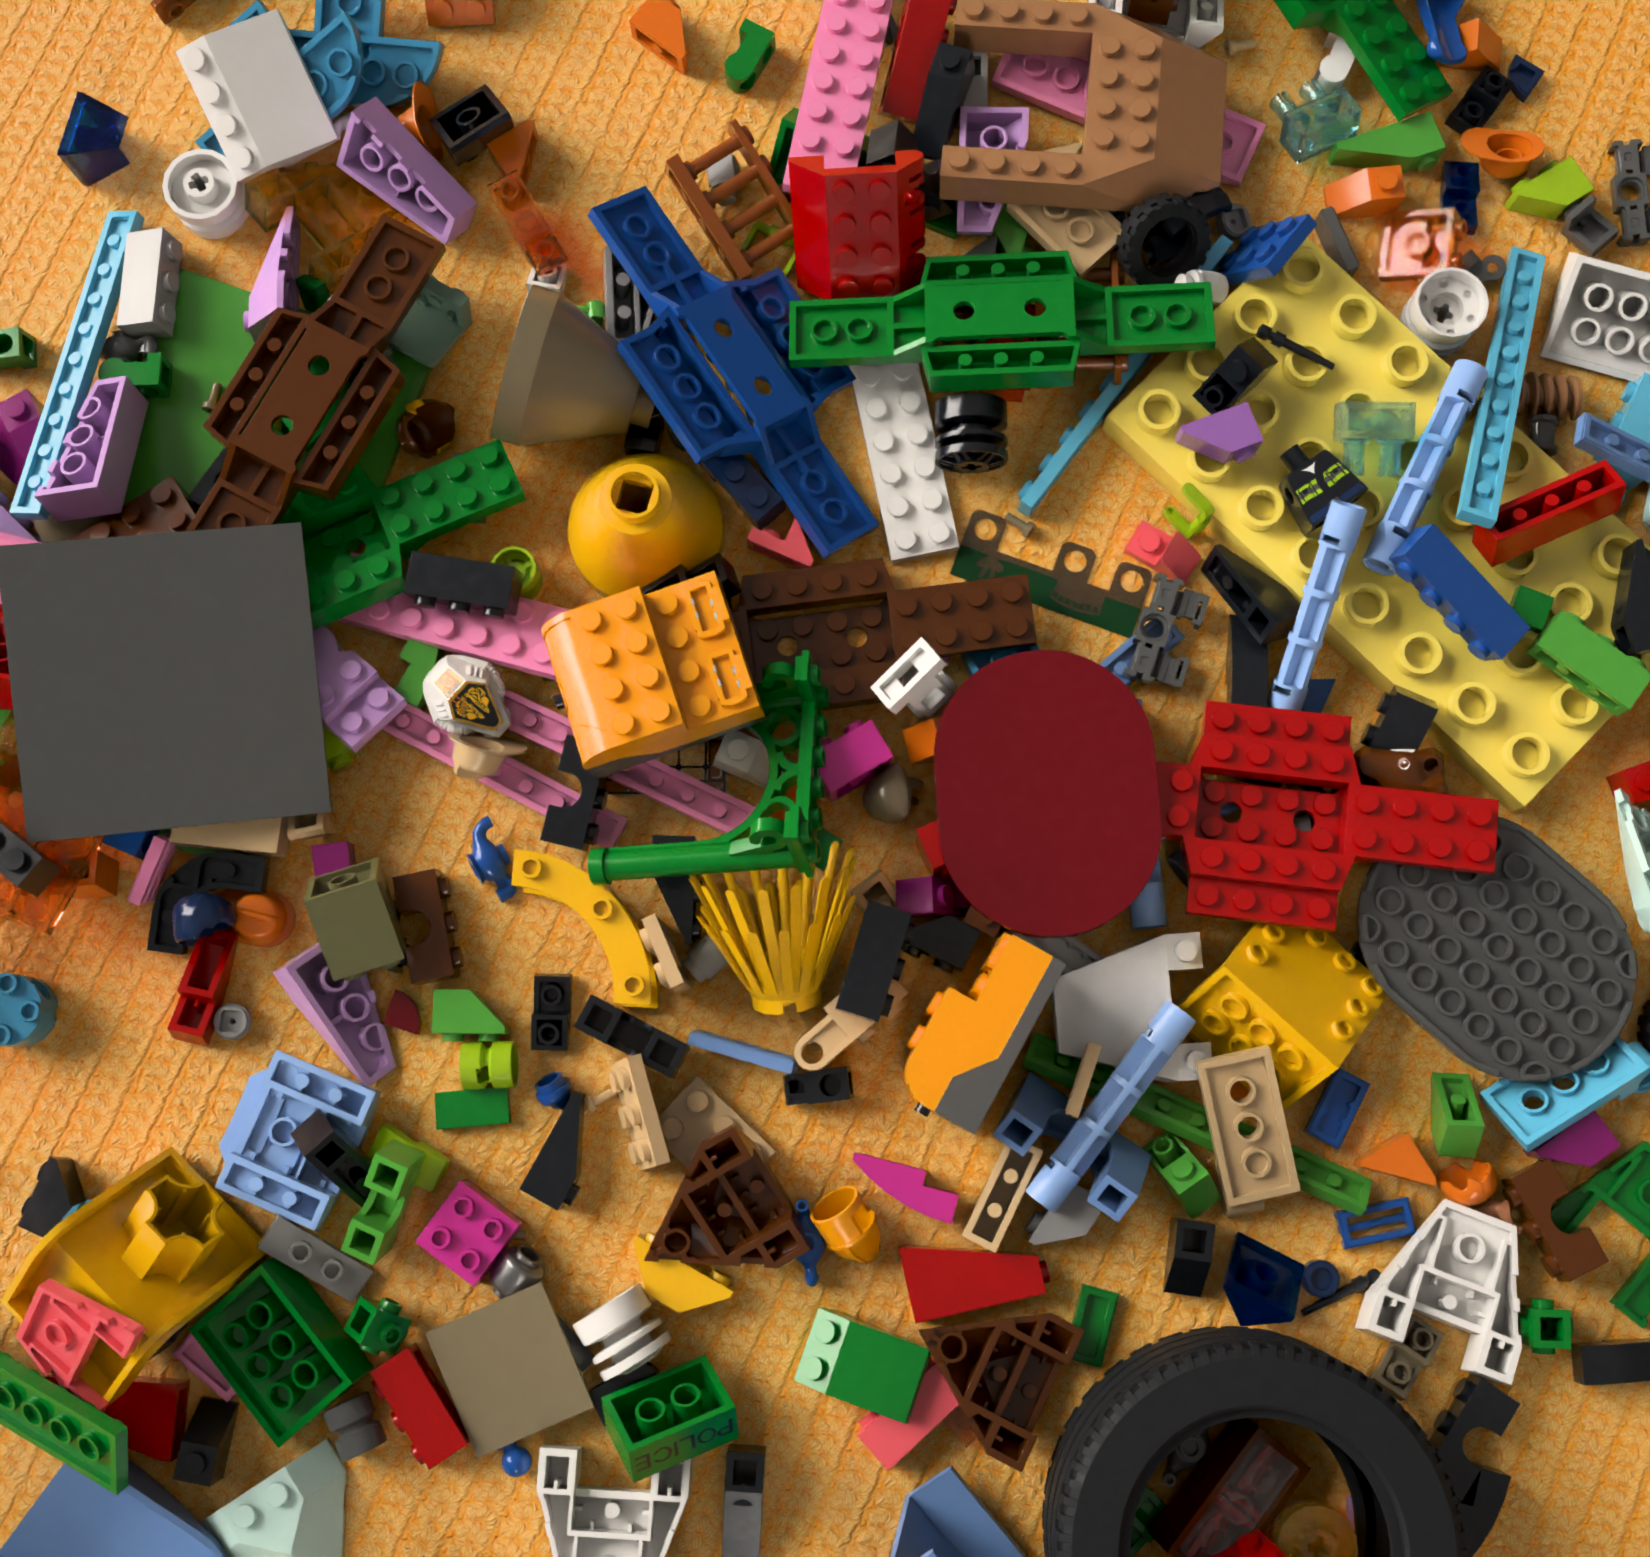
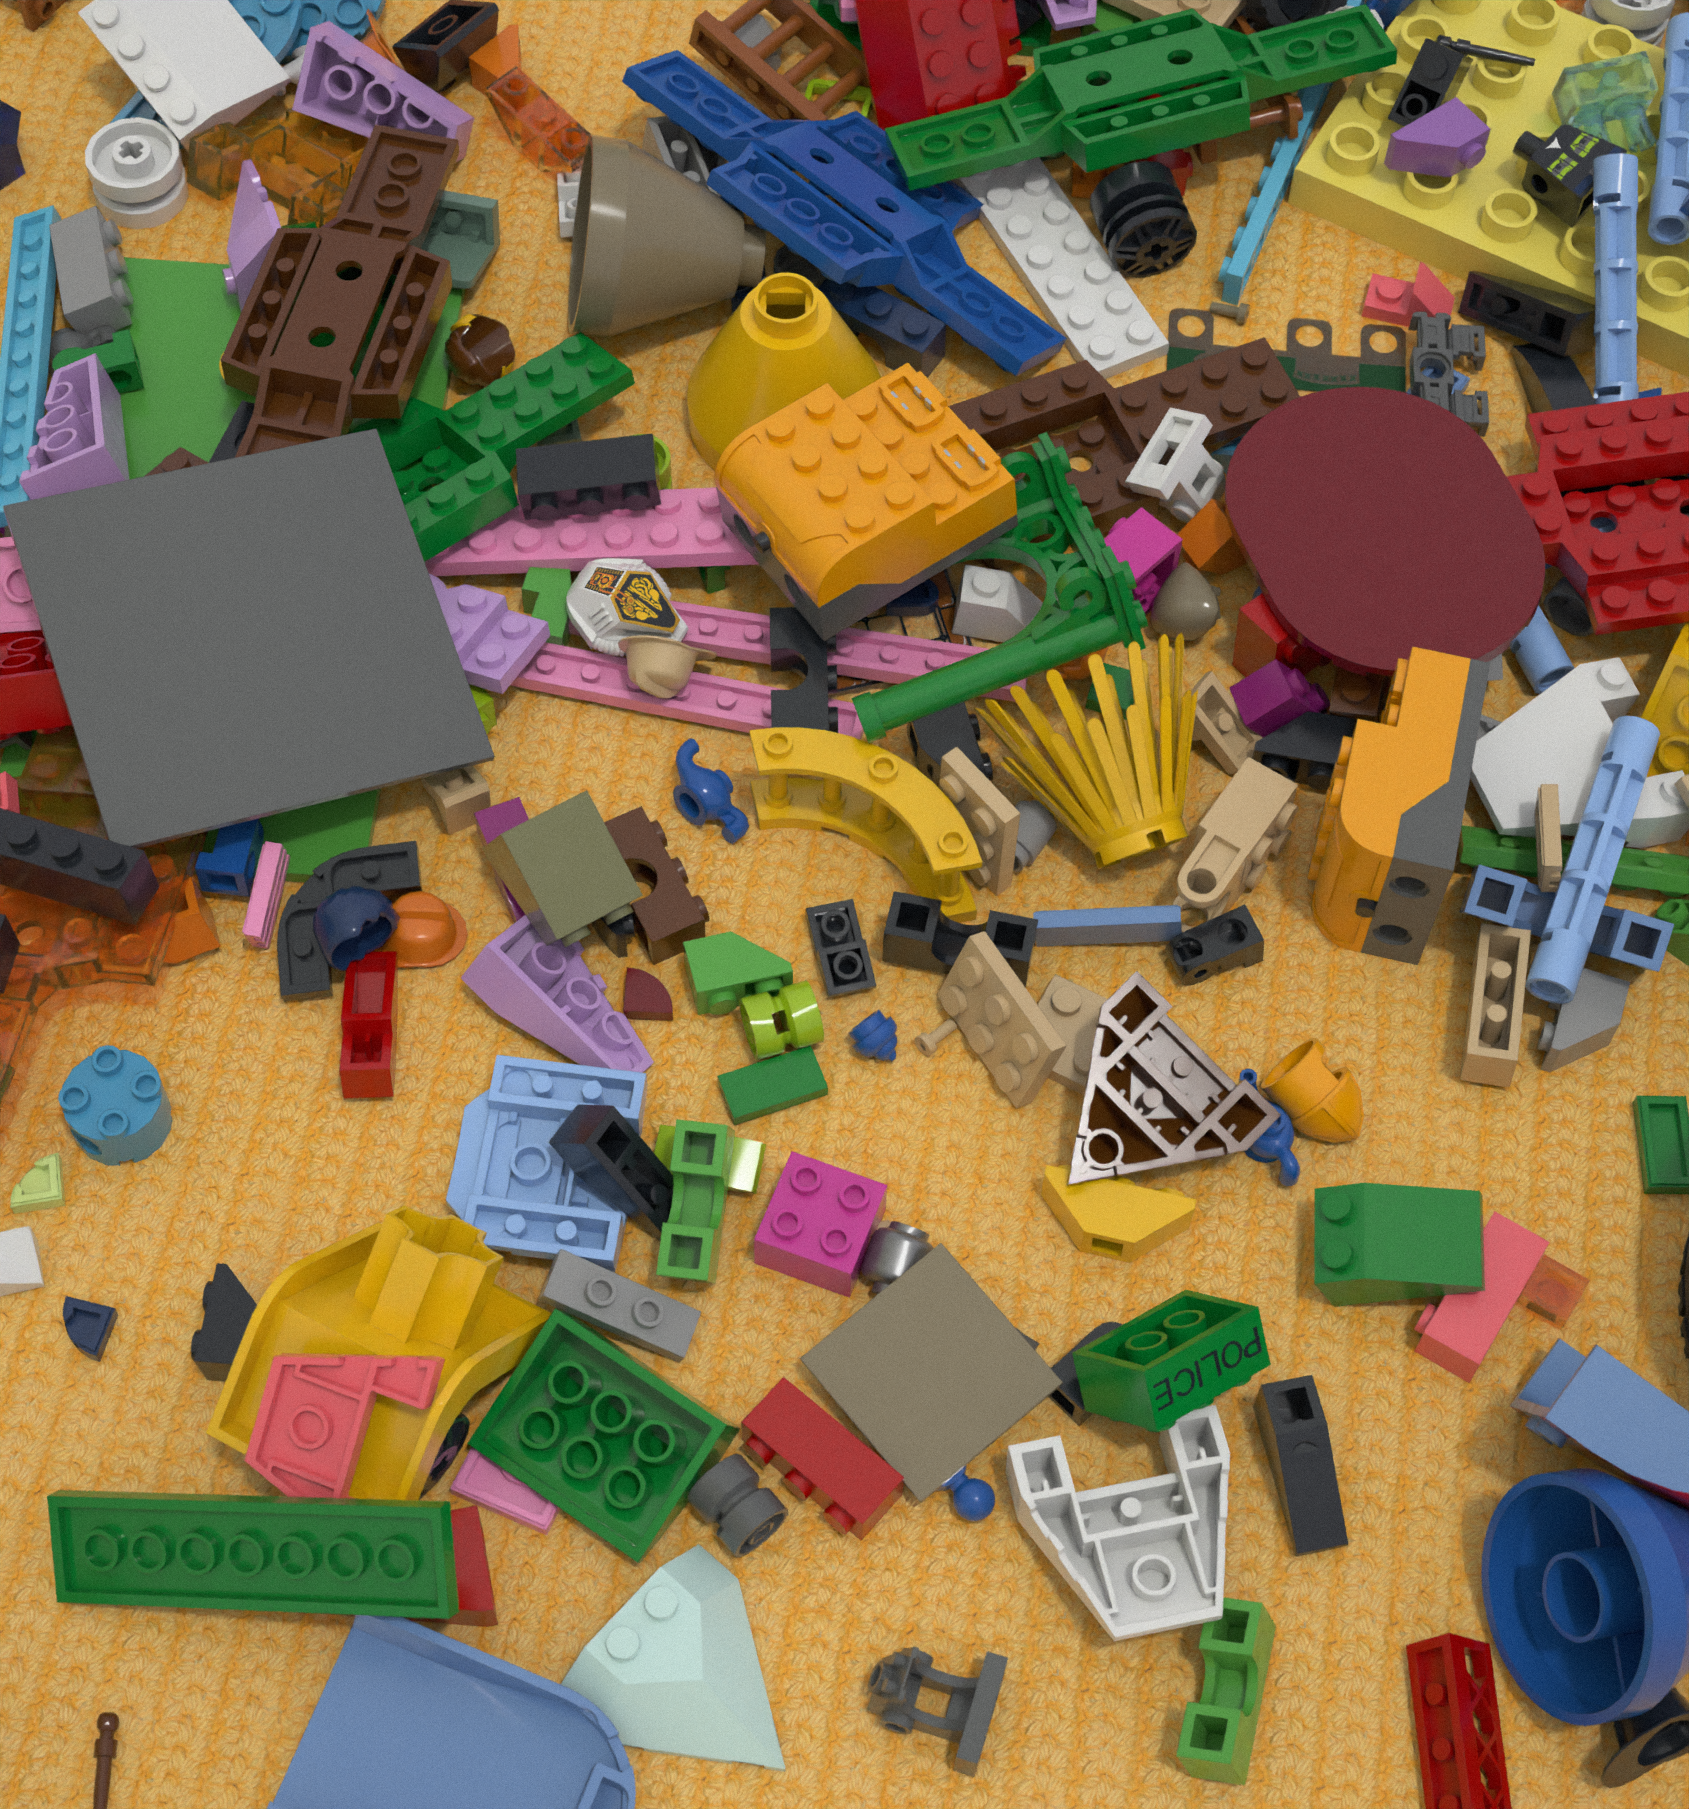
camera: 20 degrees left, 20 degrees down
(207, 1442) = (534, 1587): black slope -> none
(209, 405) = (200, 384): dark tan piece -> none
(233, 1021) = (420, 1056): light grey tile -> none
(251, 837) = (360, 821): tan brick -> none
(378, 1325) = (731, 1365): green brick -> none
(559, 1161) = (911, 1119): black slope -> none
(622, 1332) = (1058, 1276): white wheel -> none
(791, 551) = (965, 383): coral slope -> none
(875, 962) = (1247, 749): black brick -> none
(907, 1186) = (1370, 1034): dark pink slope -> none
(963, 1280) = (1488, 1121): red slope -> none
(1003, 1375) = (1584, 1200): reddish brown wedge -> none
(1201, 519) = (1443, 250): lime piece -> none

